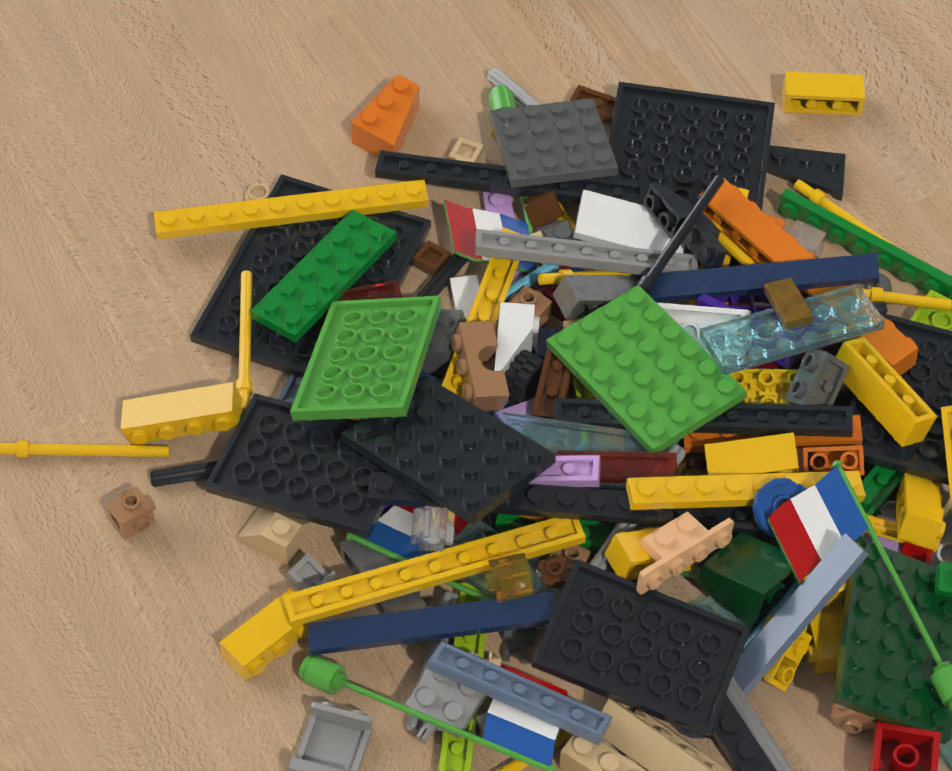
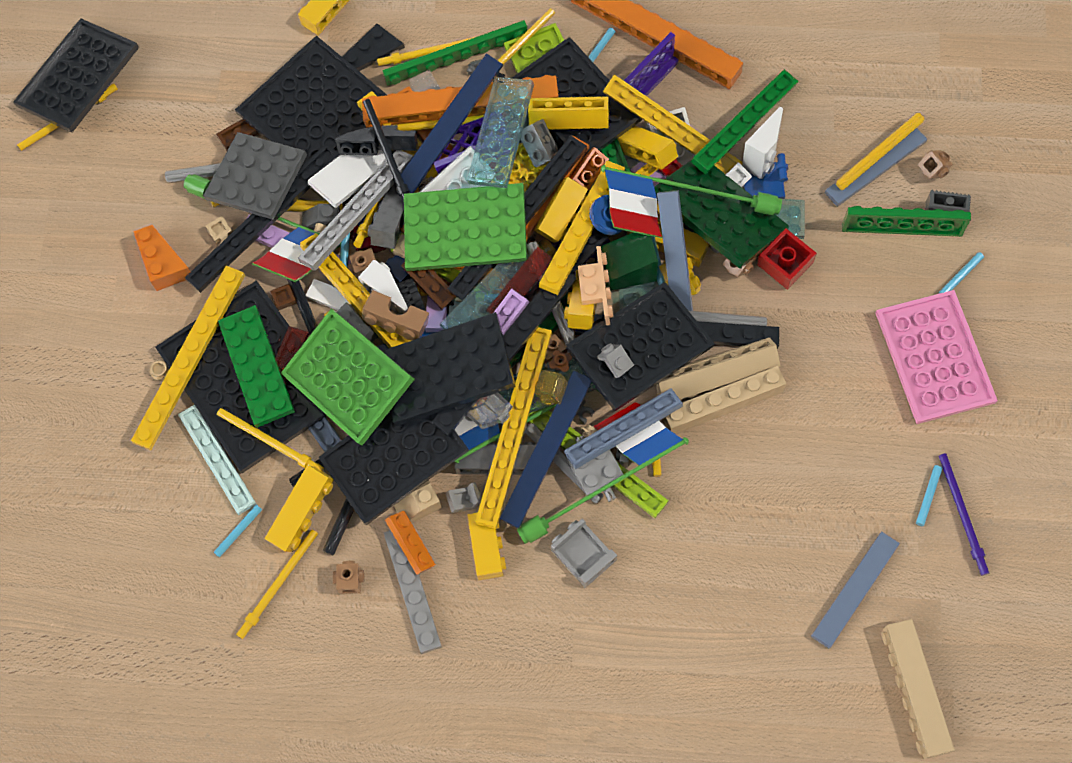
camera: 50 degrees left, 15 degrees up
(120, 376) = (237, 531): none -> medium azure bar
(162, 592) = (414, 598): none -> light grey plate
(179, 326) = (217, 460): none -> light aqua tile
(217, 551) = (410, 542): none -> orange plate
(543, 209) = (297, 211): reddish brown slope -> none
(595, 623) = (616, 359): none -> light grey bracket
(788, 303) = (485, 122): pearl gold tile -> none

